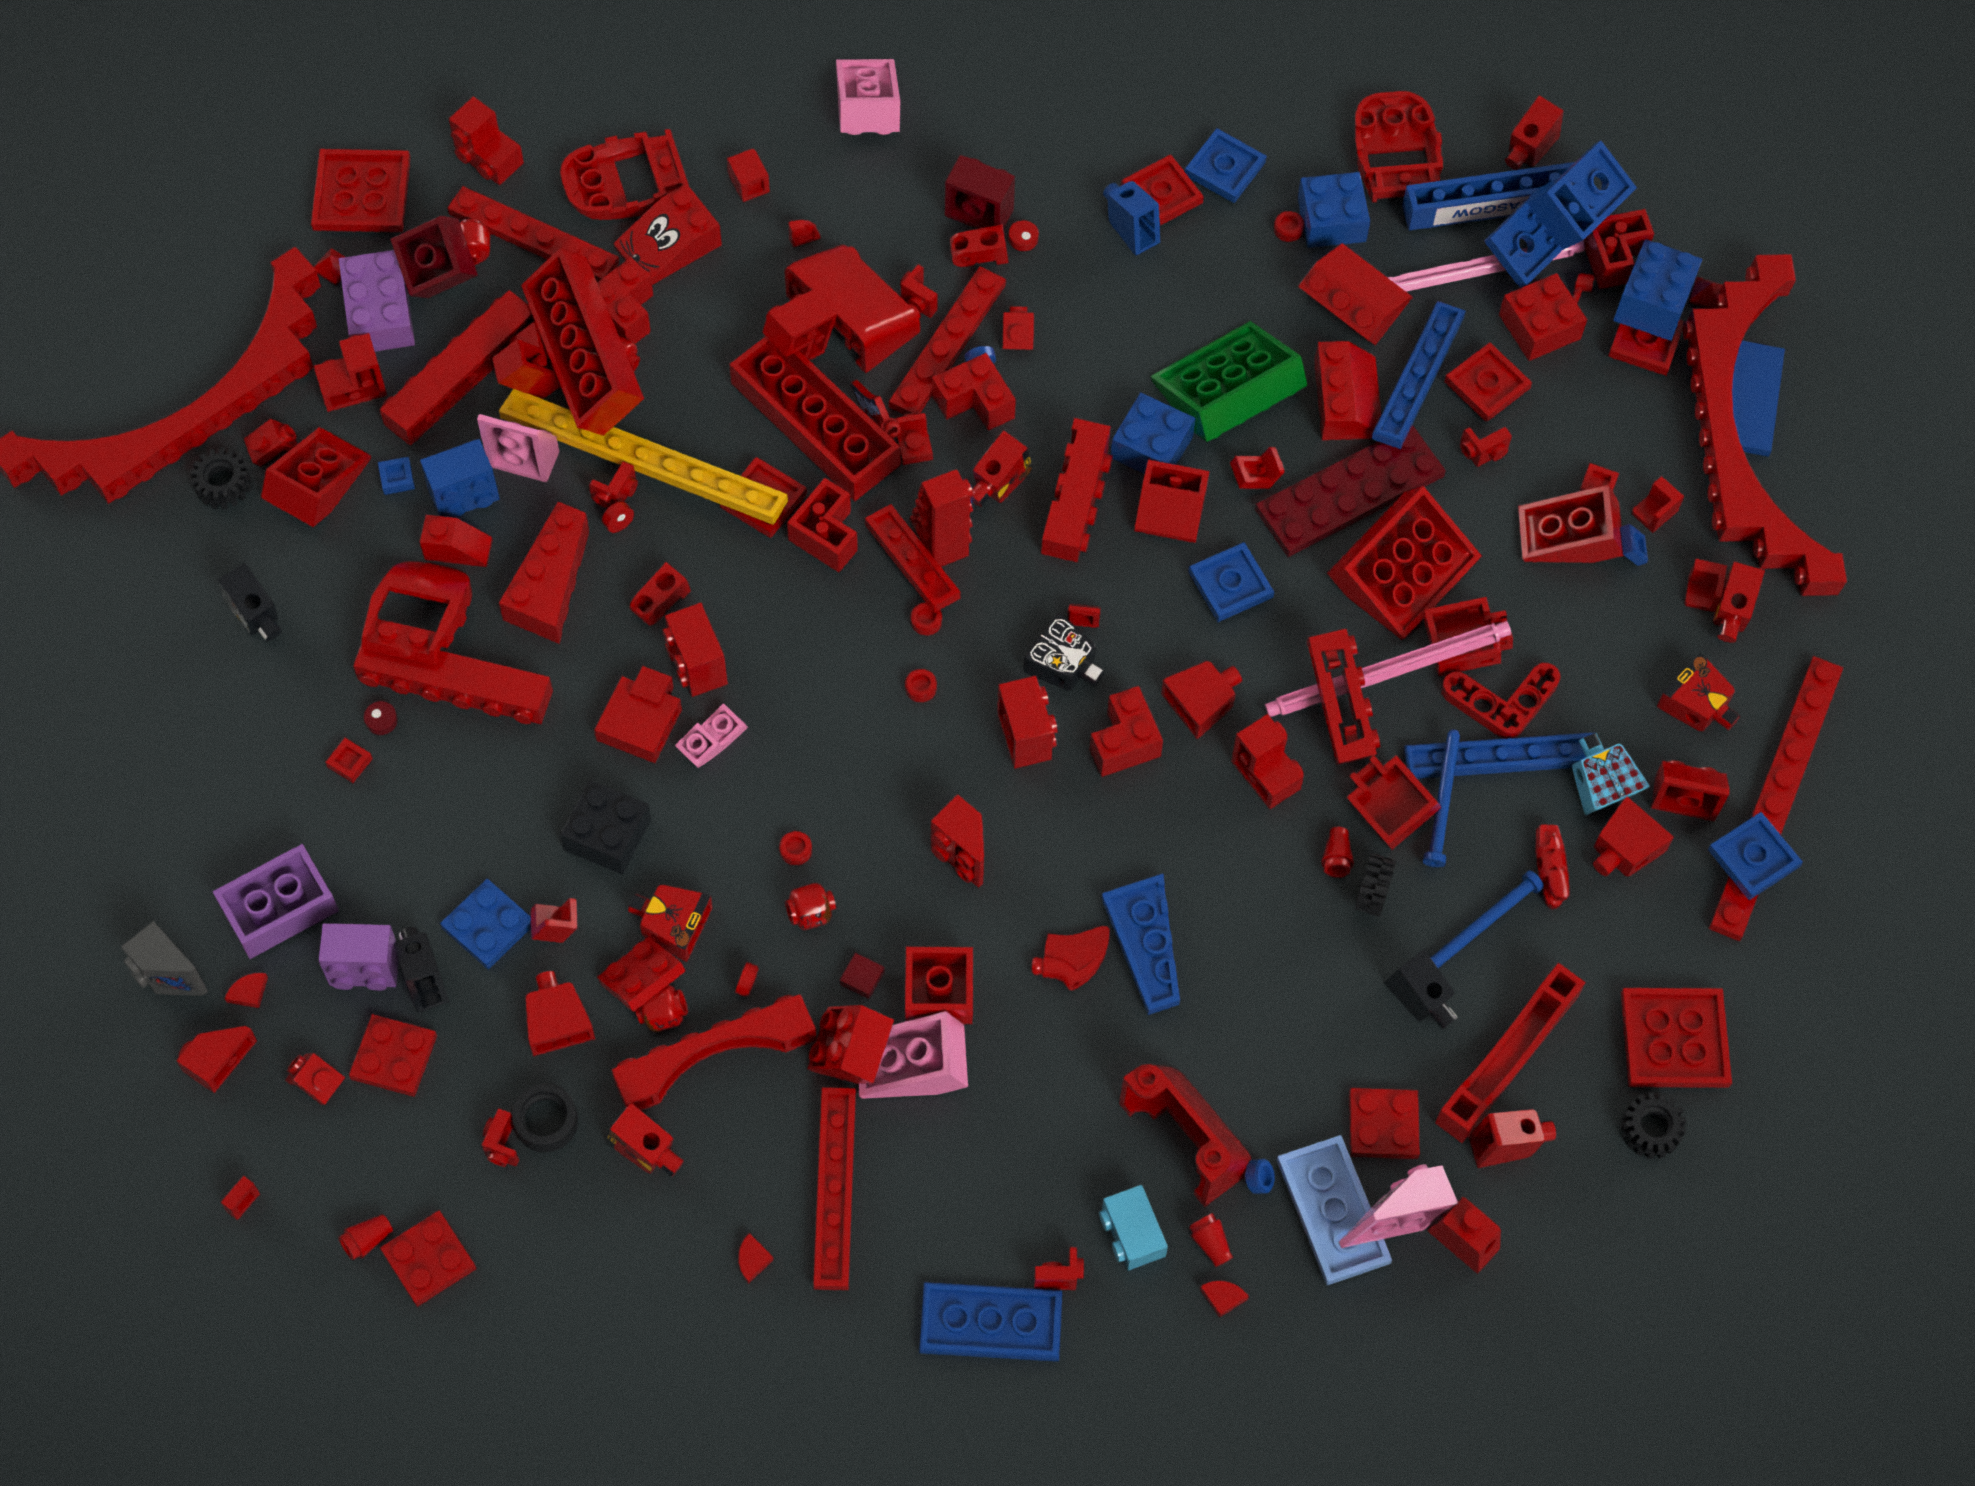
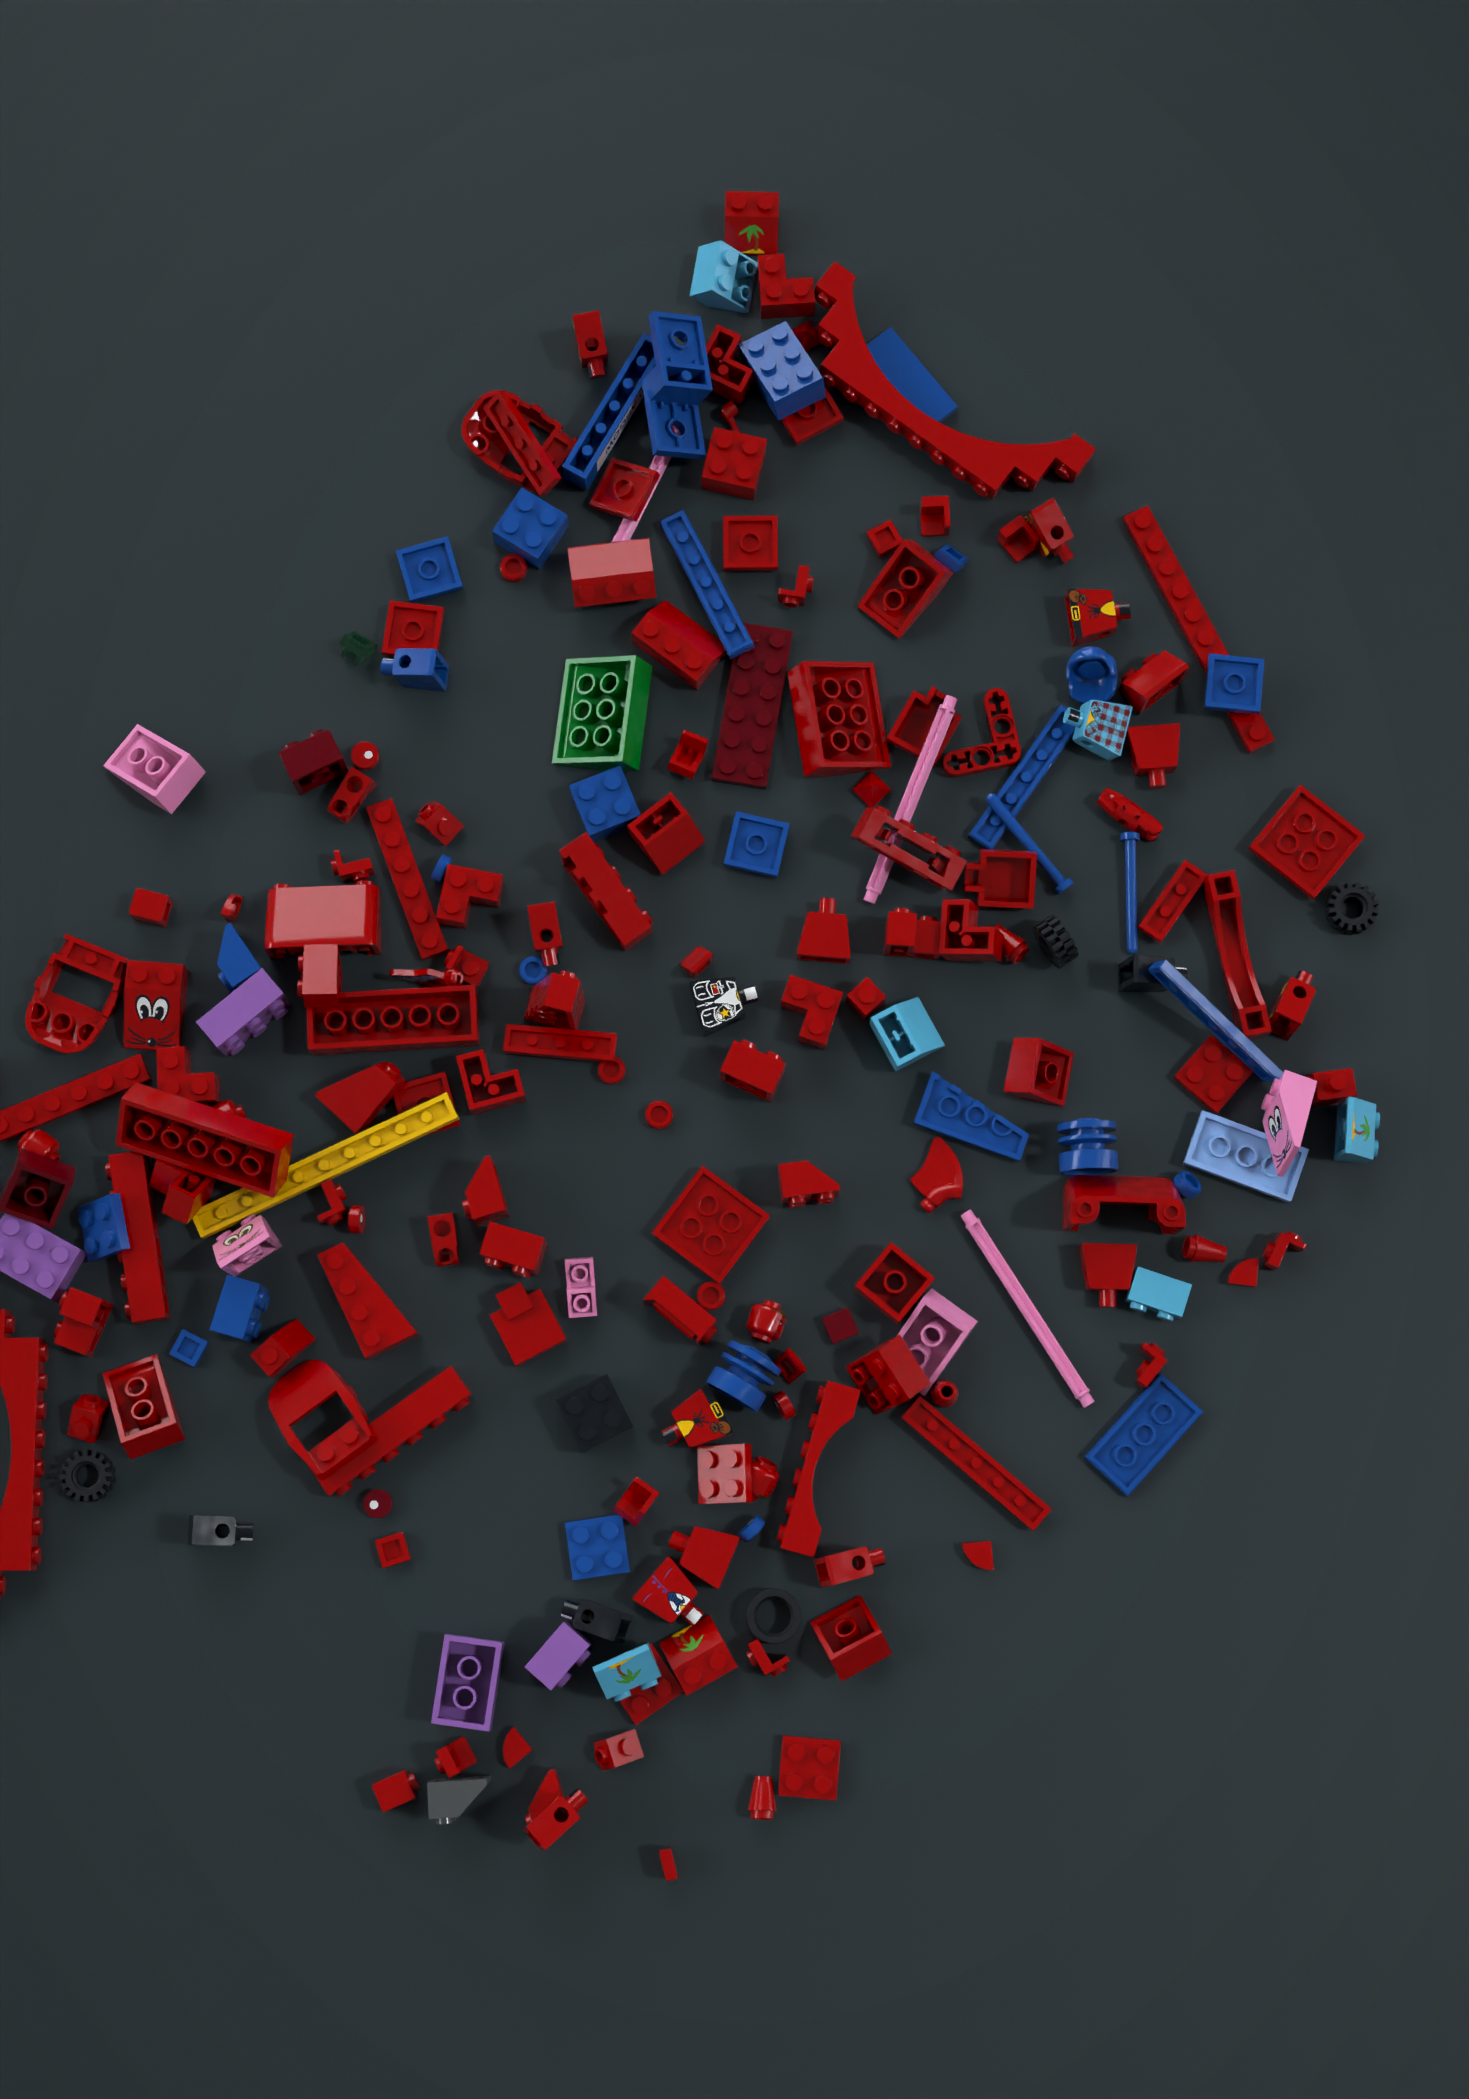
camera: 50 degrees left, 15 degrees up
(129, 914) = (396, 1790): none -> red brick
(197, 943) = (455, 1757): none -> red bracket
(200, 1054) = (546, 1829): none -> red torso
(389, 1018) = (627, 1672): none -> medium azure slope
(444, 332) = (103, 1227): none -> blue plate
(454, 1082) = (698, 1655): none -> red slope
(493, 1011) = (669, 1594): none -> red torso
(578, 1200) = (851, 1638): none -> red slope
(610, 1037) = (752, 1528): none -> blue tile
(719, 299) = (244, 1013): none -> medium lavender brick
(727, 591) = (484, 1195): none -> red slope
(729, 437) = (362, 1095): none -> red slope
(744, 919) = (744, 1375): none -> blue wheel
(757, 265) = (235, 960): none -> blue slope
(757, 824) = (681, 1311): none -> red window
(789, 958) = (790, 1364): none -> red slope
(859, 798) = (711, 1224): none -> red plate
(874, 1115) = (937, 1396): none -> red cone
(1017, 1126) = (1027, 1308): none -> bright pink piece
(1110, 161) = (357, 644): none -> clear green tile
(1117, 1164) = (1107, 1269): none -> red torso
(1176, 769) = (865, 998): none -> red brick
(1176, 825) = (905, 1033): none -> medium azure slope
(1212, 1054) = (1087, 1147): none -> blue wheel
(1246, 965) = (1038, 1071): none -> red slope
(1267, 1306) = (1275, 1251): none -> red bracket
(1309, 804) = (962, 938): none -> red brick
(1369, 638) = (871, 789): none -> red slope
(1396, 144) = (522, 442): none -> red plate
(1430, 1067) = (1215, 1021): none -> blue tile
(1436, 253) = (624, 489): none -> red tile
(1448, 1288) = (1356, 1131): none -> medium azure slope
(1507, 962) = (1172, 901): none -> red plate
(1645, 731) = (1091, 675): none -> blue piece
(1692, 193) = (723, 277): none -> medium azure slope
(1724, 241) = (783, 296): none -> red brick
(1760, 178) = (752, 222): none -> red slope

